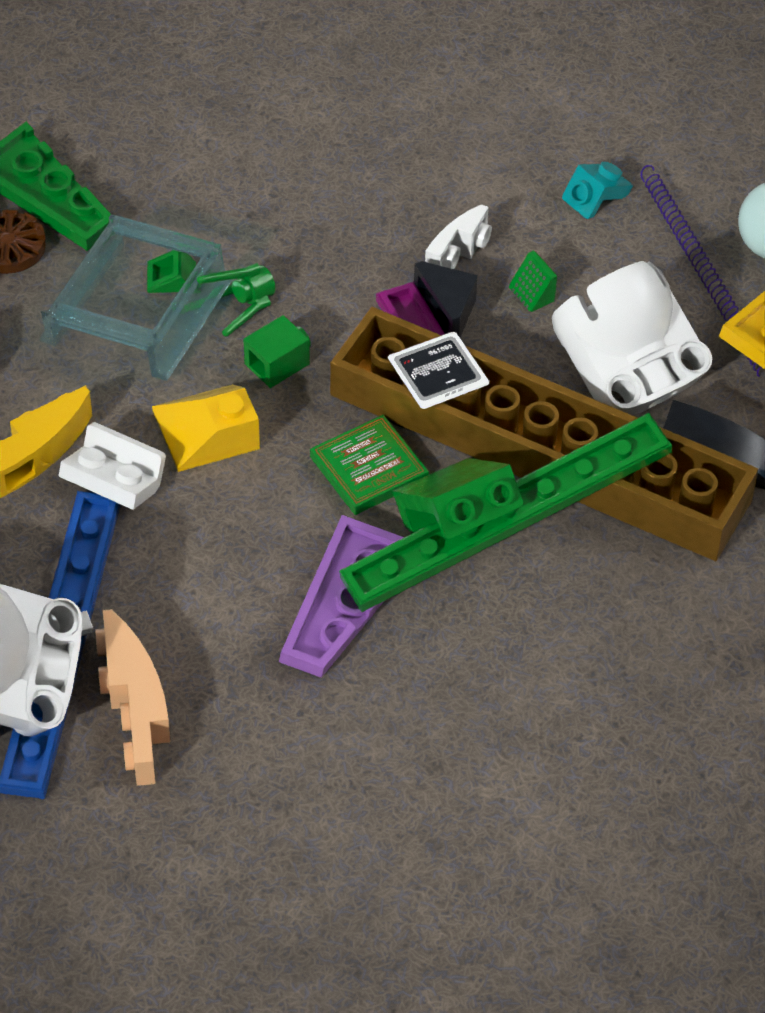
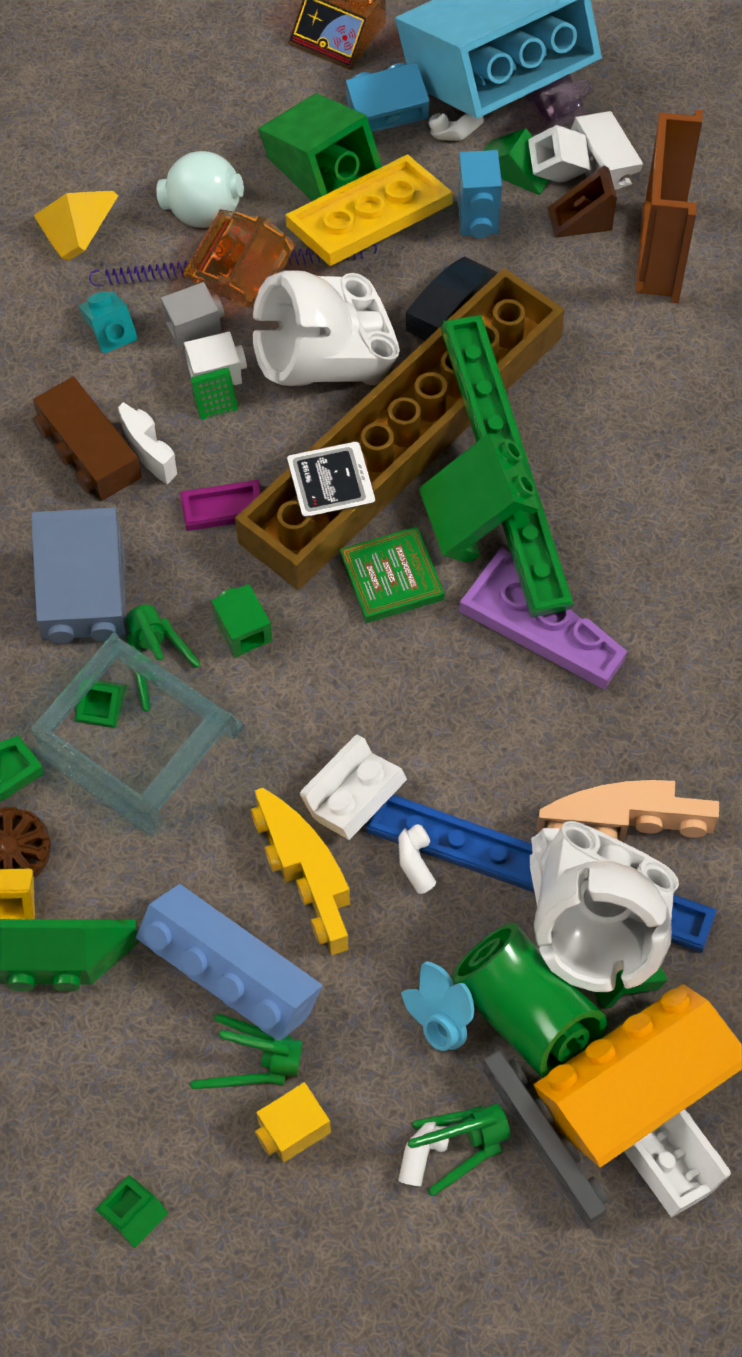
camera: 75 degrees left, 10 degrees up
(47, 524) = (410, 859): none -> white arm
(209, 426) = (309, 697): yellow slope -> none
(287, 218) = (79, 574): none -> sand blue slope
(447, 294) = (216, 463): black slope -> none
(454, 188) = (86, 439): none -> reddish brown brick
(573, 269) = (214, 354): none -> white brick
(621, 242) = (192, 313): none -> light grey brick
(701, 262) = (239, 256): none -> clear orange slope
(705, 136) = (74, 220): none -> yellow slope

